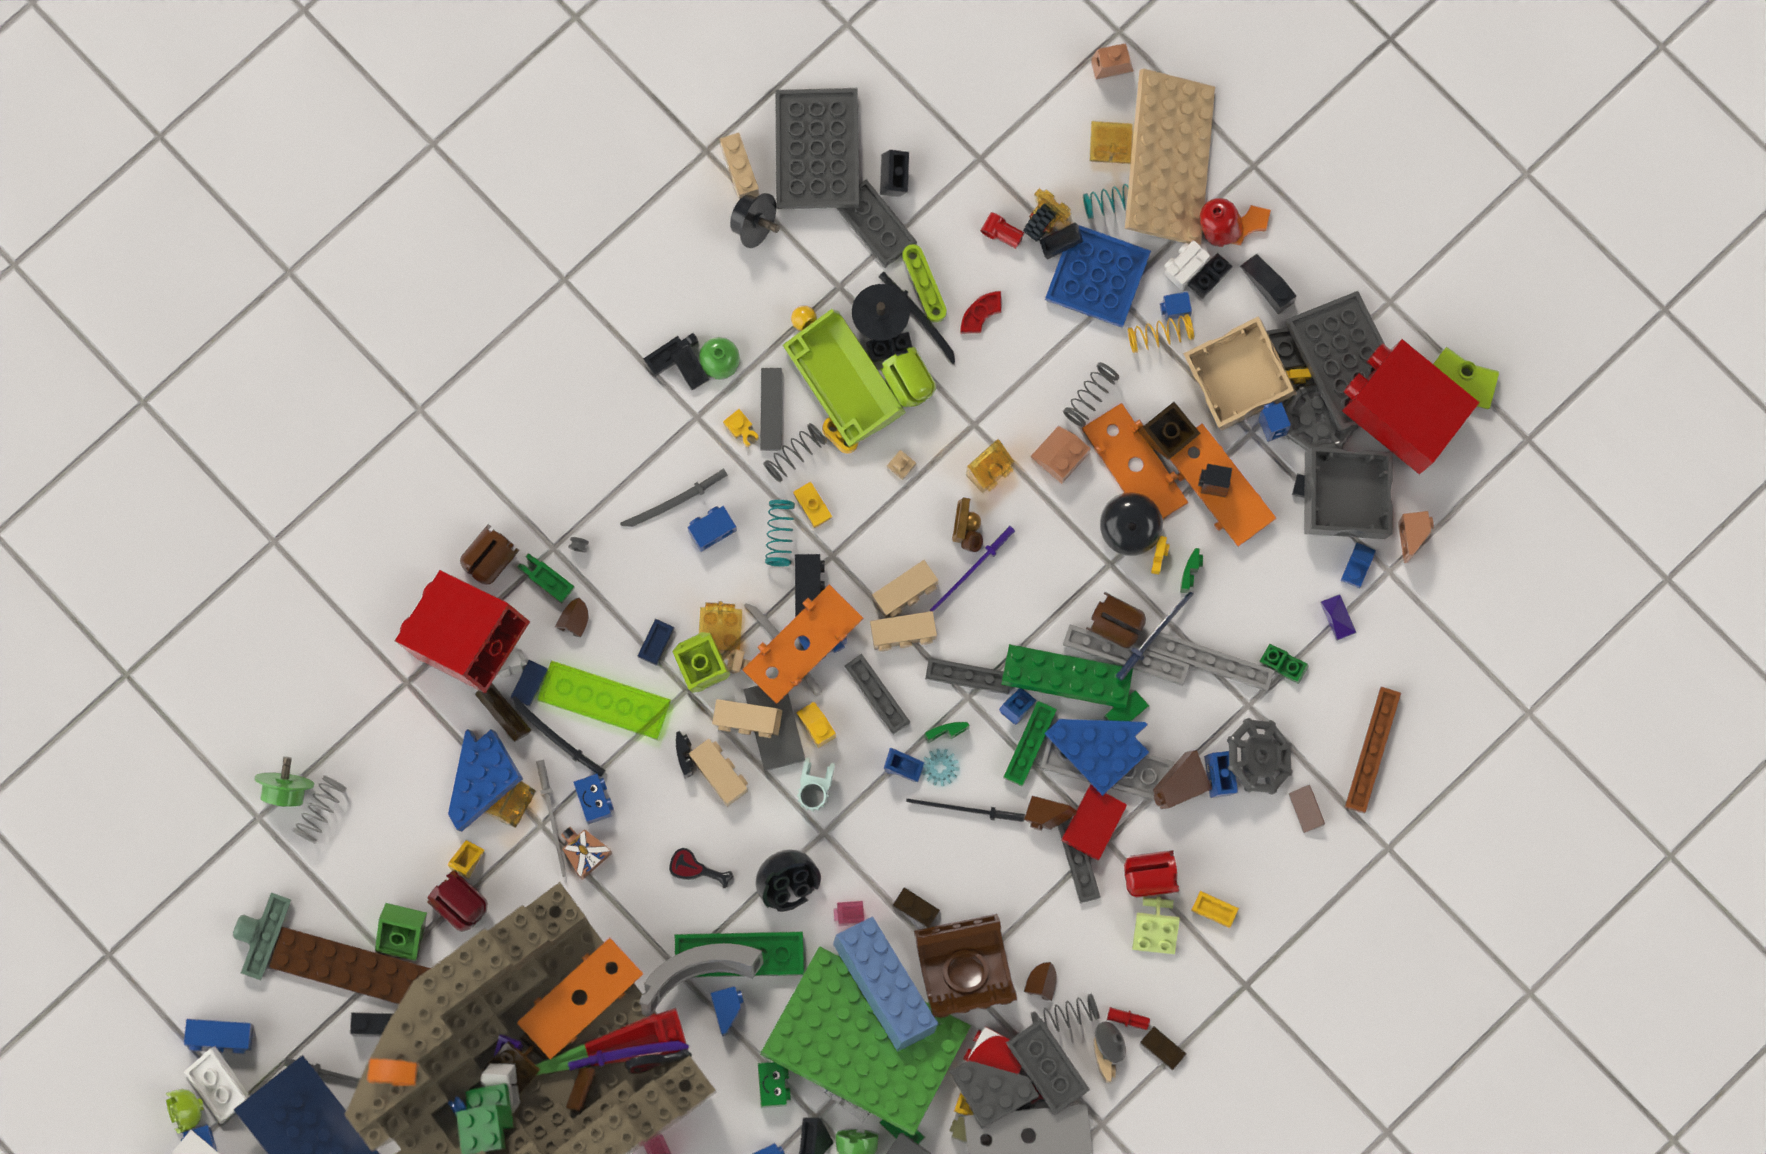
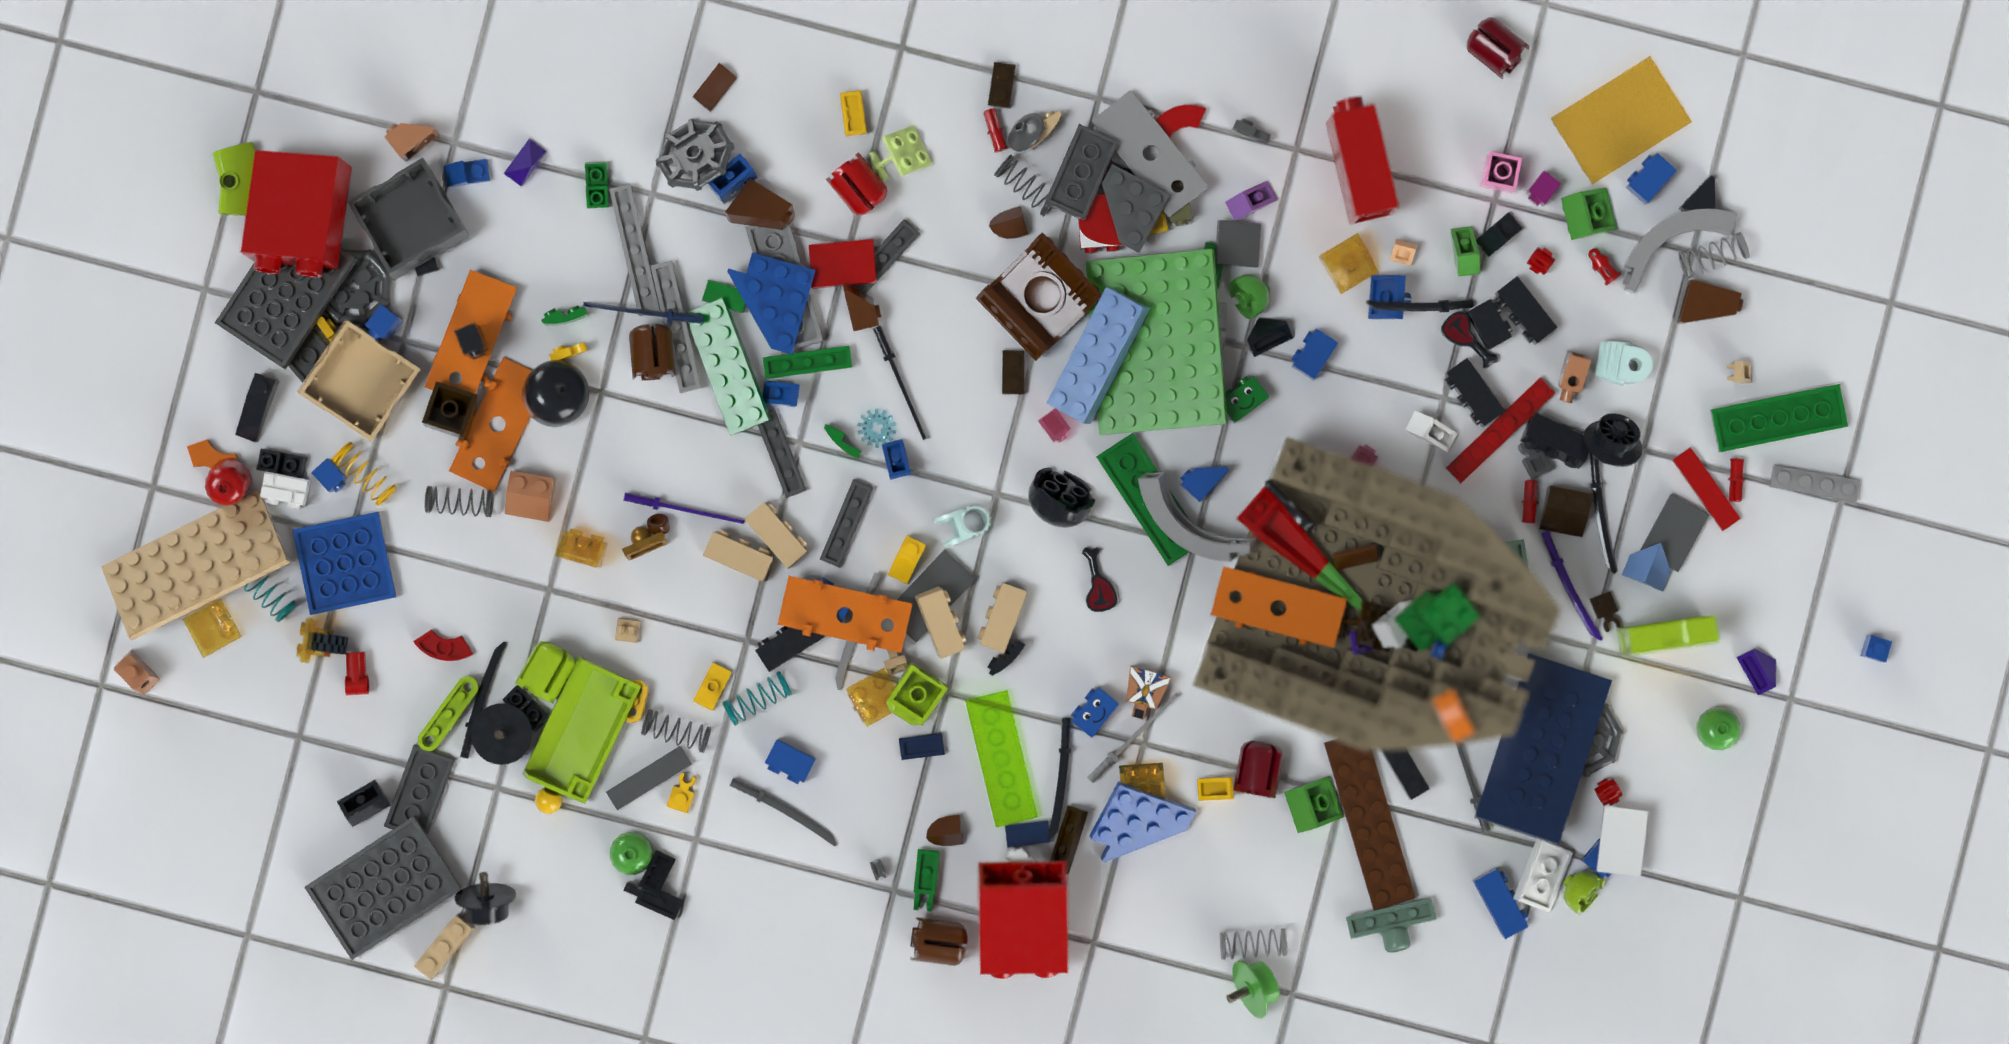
camera: 120 degrees left, 10 degrees up
(626, 1052) = (1318, 556): dark purple sword -> none
(1061, 240) = (333, 615): black tile -> none
(1372, 750) = (626, 61): dark orange plate -> none

